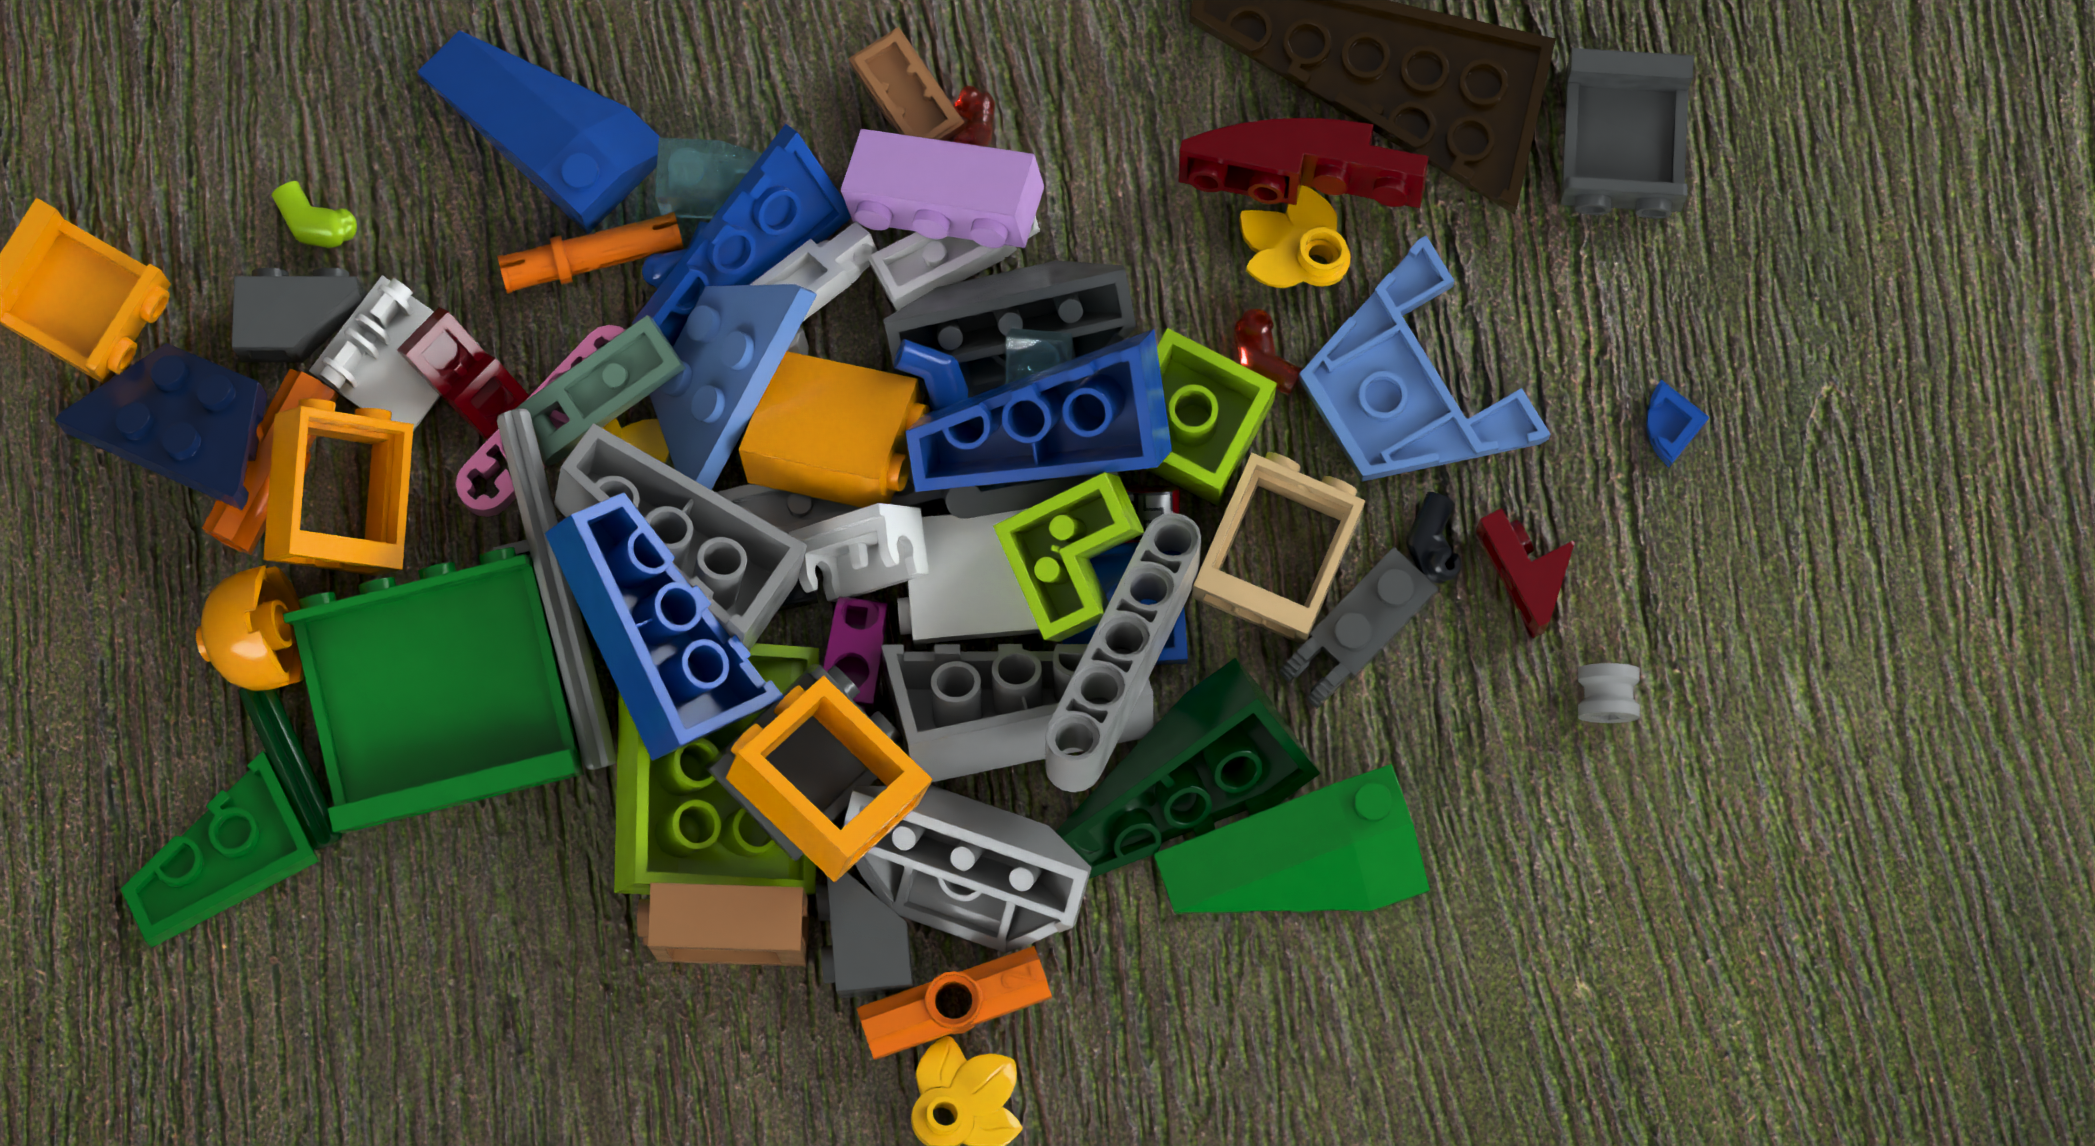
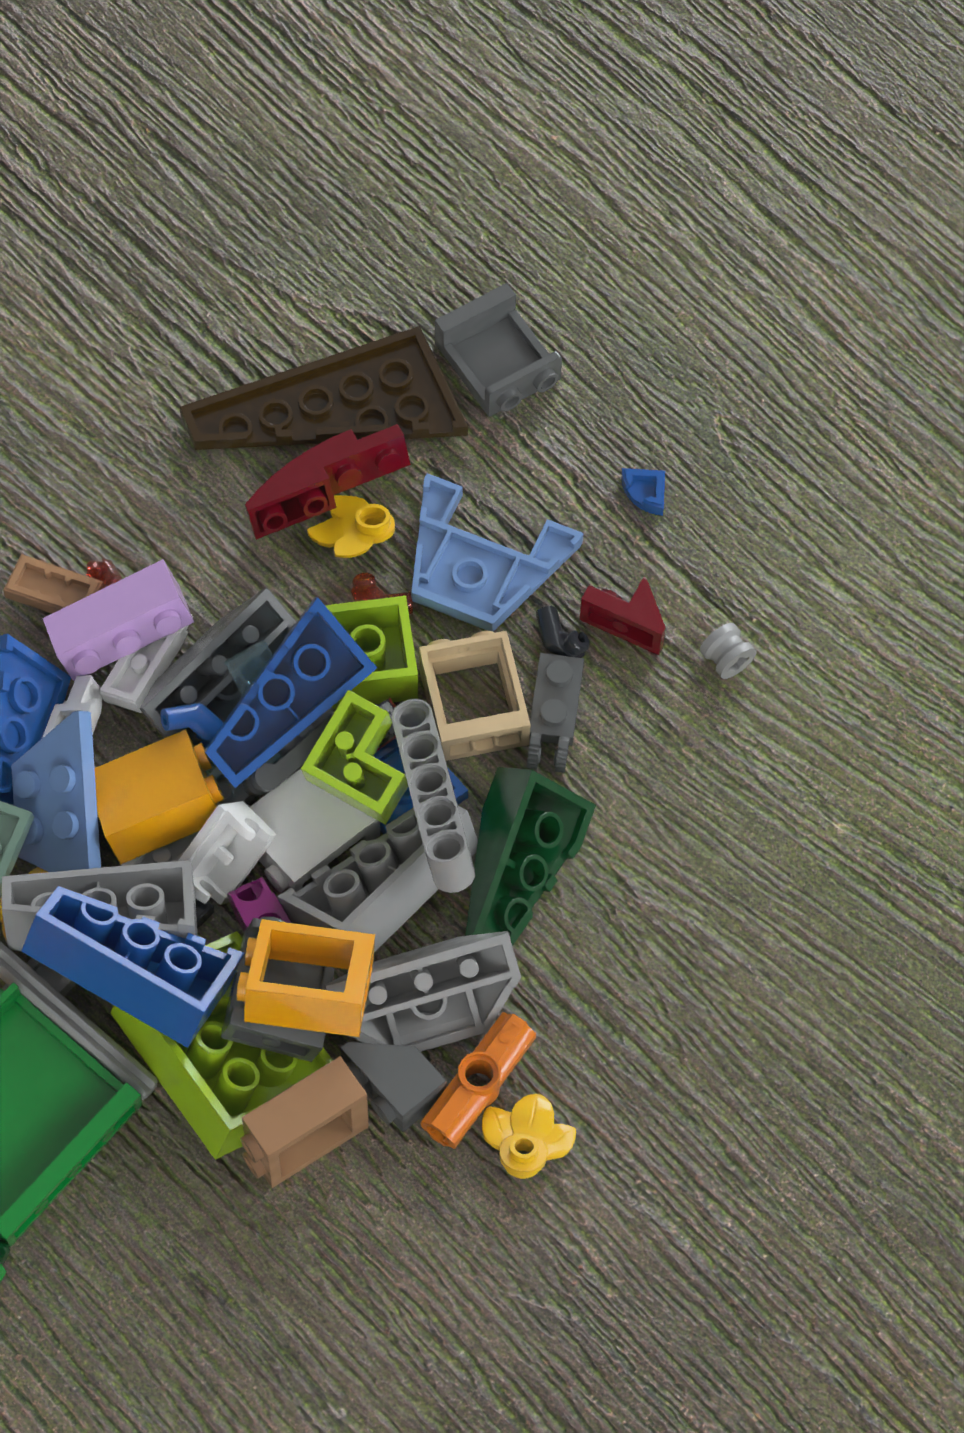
camera: 40 degrees left, 15 degrees down
(1318, 852) = (629, 848): green wedge -> none

